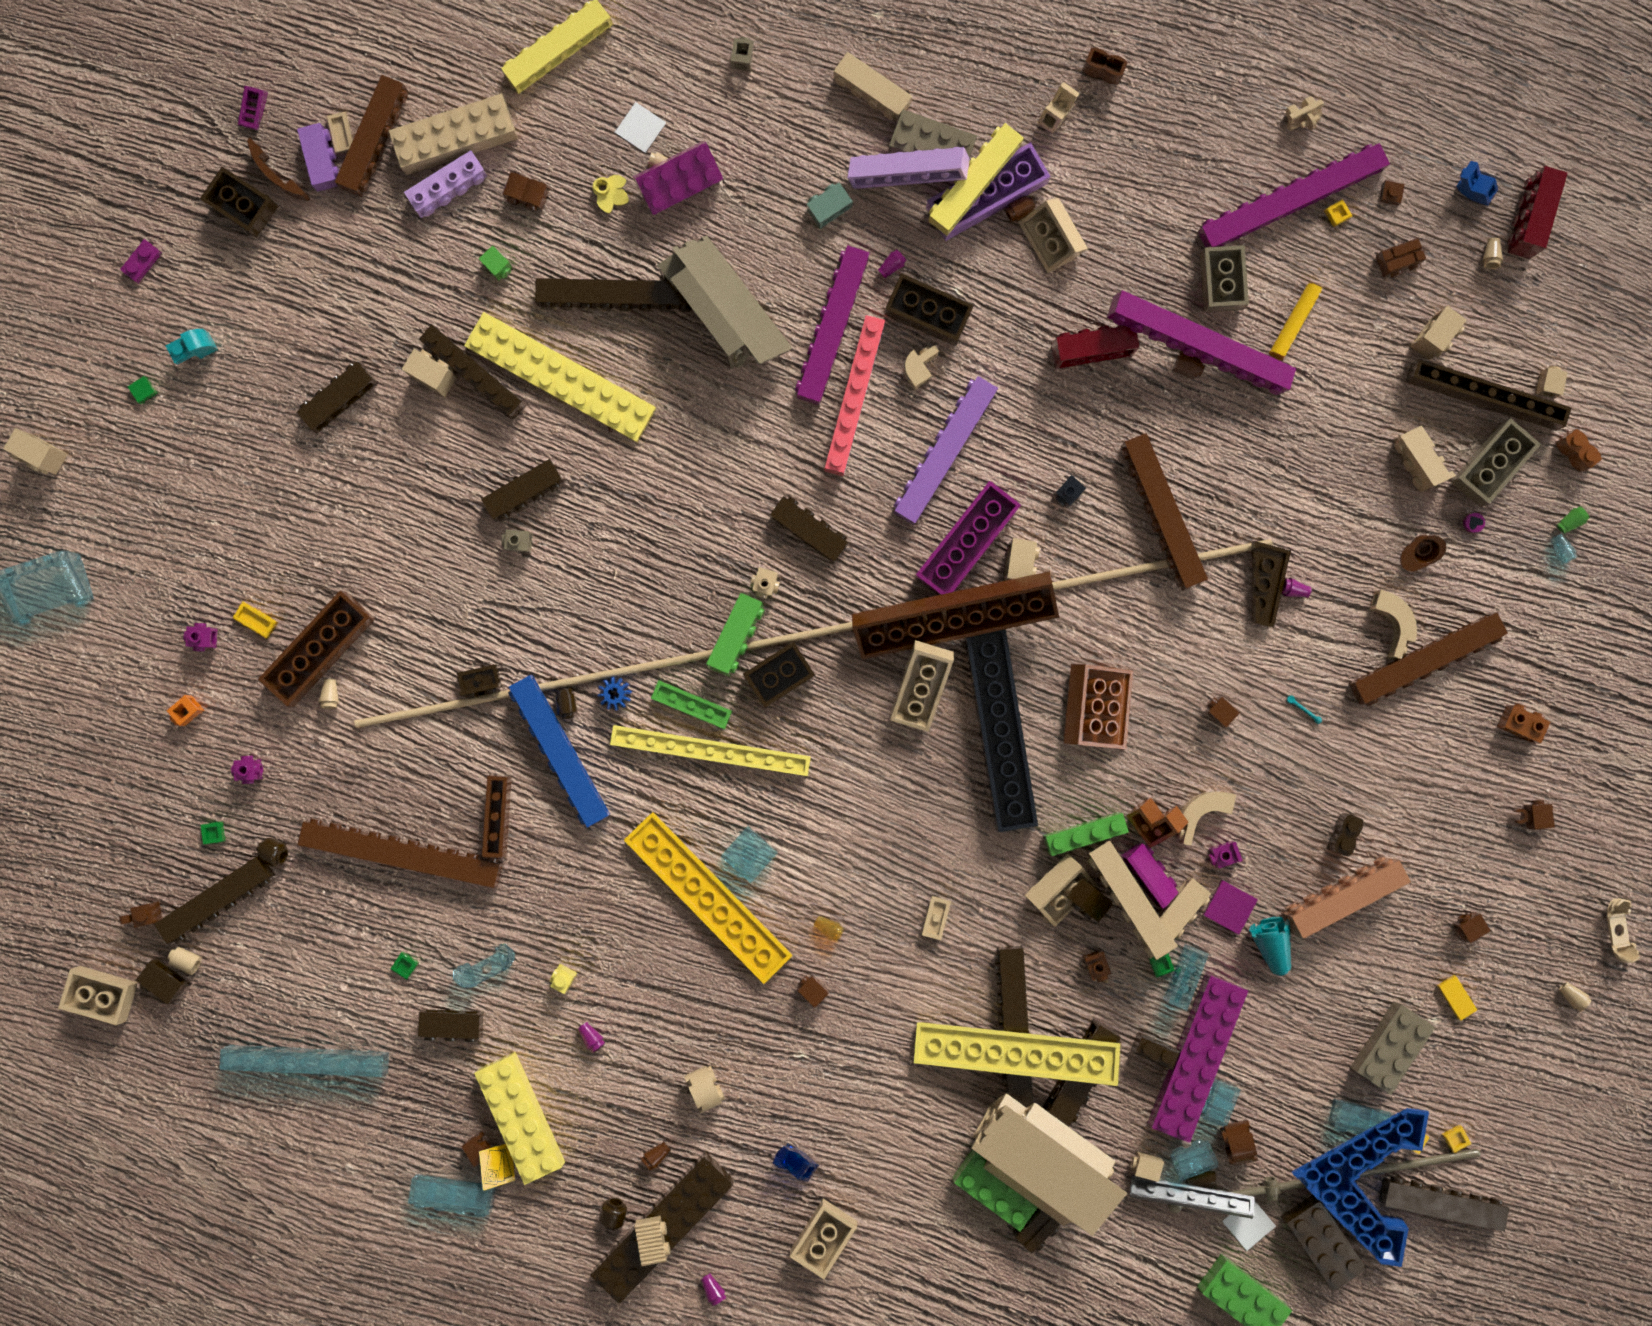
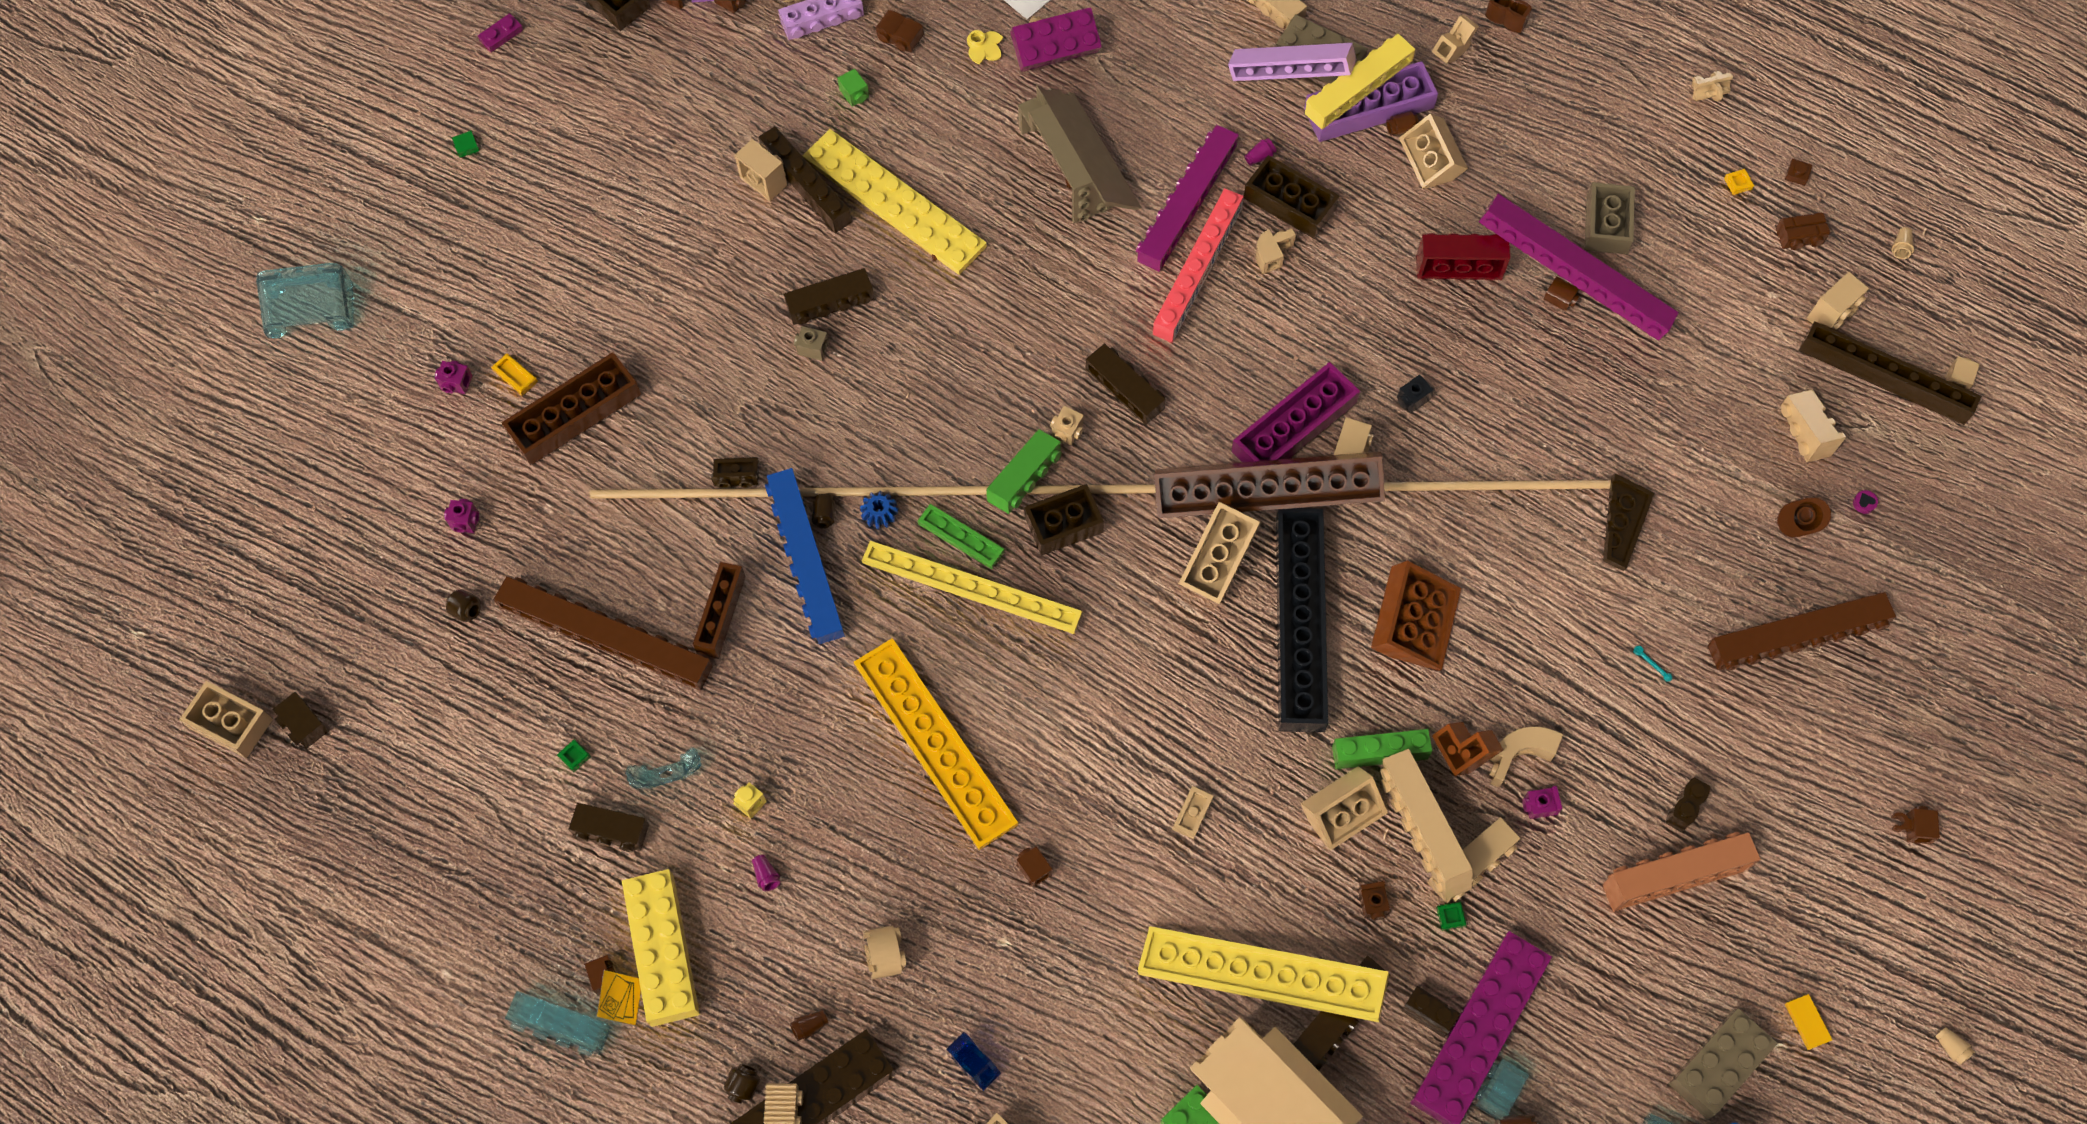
camera: 15 degrees right, 20 degrees down
(34, 452) = (341, 176): tan brick -> none
(143, 915) = (303, 645): reddish brown brick -> none
(177, 710) = (413, 446): orange brick -> none
(184, 960) = (332, 702): tan brick -> none
(192, 343) = (531, 106): teal brick -> none
(212, 832) = (404, 577): green tile -> none
(214, 900) = (384, 644): dark brown brick -> none
(304, 1060) = (432, 835): clear light blue brick -> none
(329, 695) = (570, 460): tan cone -> none
(336, 397) = (660, 180): dark brown brick -> none
(608, 295) = (966, 133): dark brown brick -> none
(749, 854) = (992, 701): clear light blue brick -> none
(829, 204) = (1205, 90): sand green brick -> none
(830, 928) = (1067, 801): clear yellow cone -> none
(945, 451) = (1285, 333): medium lavender brick -> none
(1013, 1012) = (1267, 931): dark brown brick -> none
(1089, 901) = (1376, 820): dark brown brick -> none
(1150, 874) = (1453, 805): magenta slope -> none
(1164, 512) = (1516, 431): reddish brown brick -> none
(1186, 977) = (1479, 930): clear light blue brick -> none
(1221, 711) = (1556, 644): reddish brown brick -> none
(1230, 907) = (1541, 865): magenta tile -> none
(1274, 943) = (1590, 914): teal cone -> none
(1294, 197) = (1696, 156): magenta brick -> none
(1294, 588) = (1655, 533): magenta cone -> none
(1295, 321) = (1684, 270): yellow brick -> none
(1401, 618) = (1773, 581): tan arch -> none
(1470, 927) = (1830, 938): reddish brown brick -> none
(1476, 185) = (1888, 177): blue brick -> none
(1495, 462) = (1892, 441): dark tan brick -> none
(1524, 724) = (1909, 721): dark orange brick -> none
(1537, 212) = (1952, 208): dark red brick -> none
(1564, 550) = (1966, 544): clear light blue cone -> none
(1574, 519) = (1979, 516): bright green cone -> none
(1578, 450) = (1988, 445): dark orange brick -> none
(1620, 945) = (2011, 955): tan piece -> none

